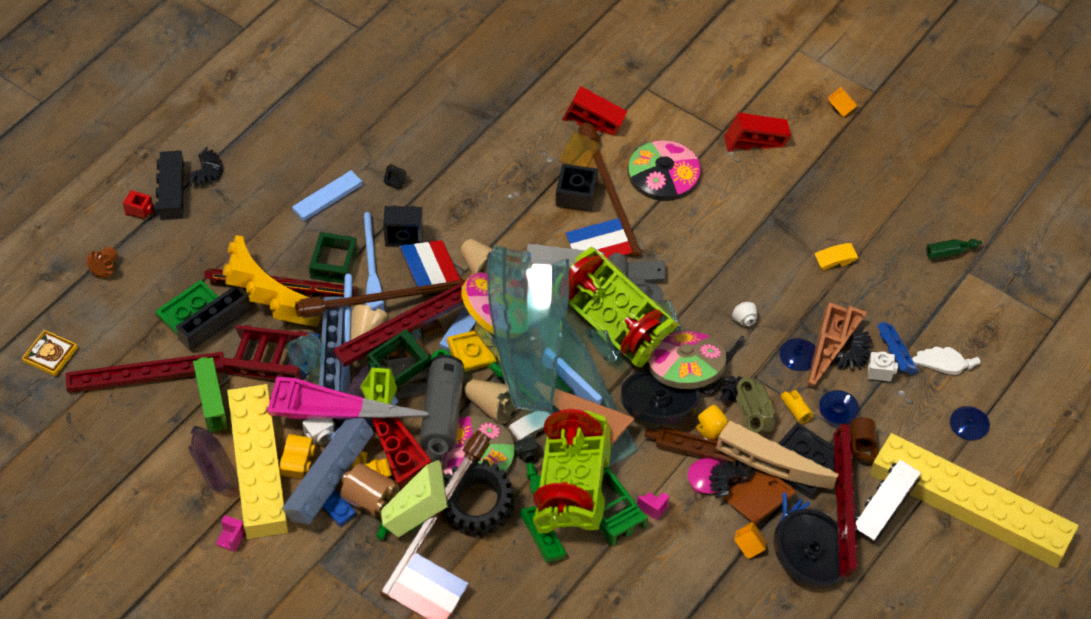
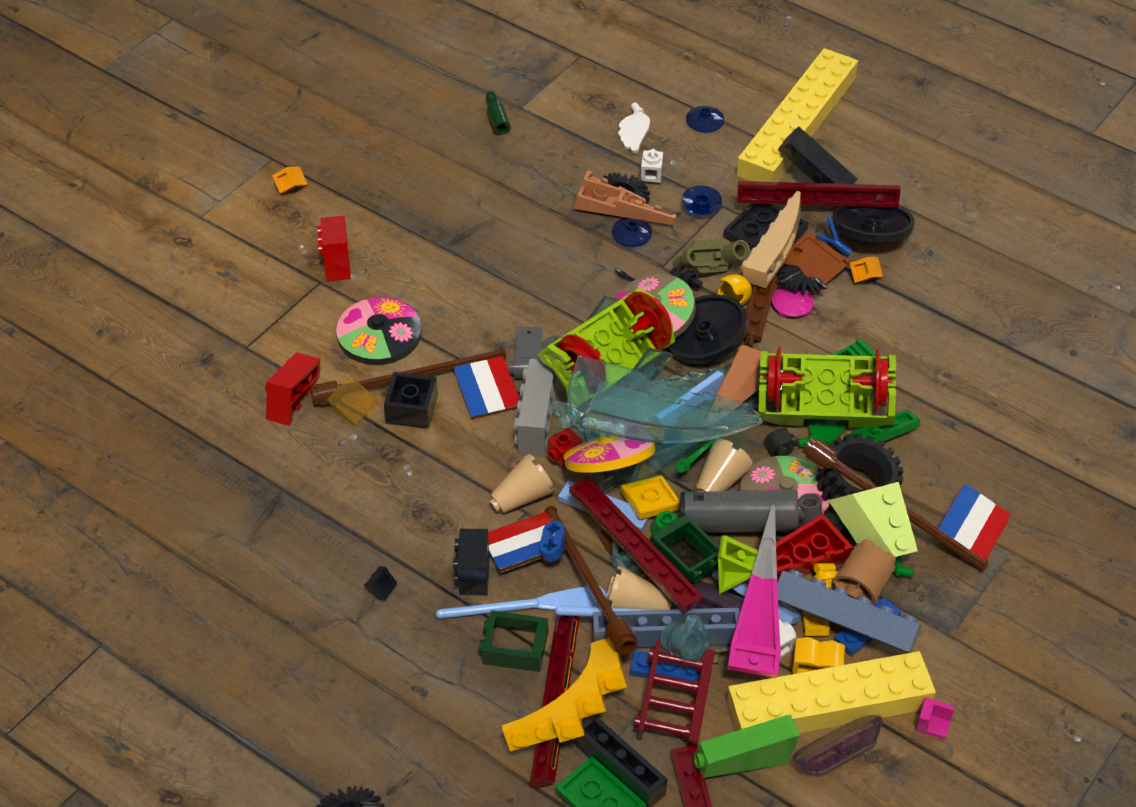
camera: 90 degrees left, 5 degrees down
(327, 195) = (407, 659): light blue tile -> none
(419, 276) = (548, 541): none -> blue beam
(529, 425) = (750, 443): white slope -> none
(653, 505) = (836, 339): dark pink panel -> none
(745, 313) = (588, 264): white cone -> none
(797, 406) = (702, 230): yellow hinge -> none
(835, 255) = (507, 196): yellow slope -> none
(863, 439) = (730, 182): reddish brown piece -> none
(897, 347) = (624, 158): blue plate -> none

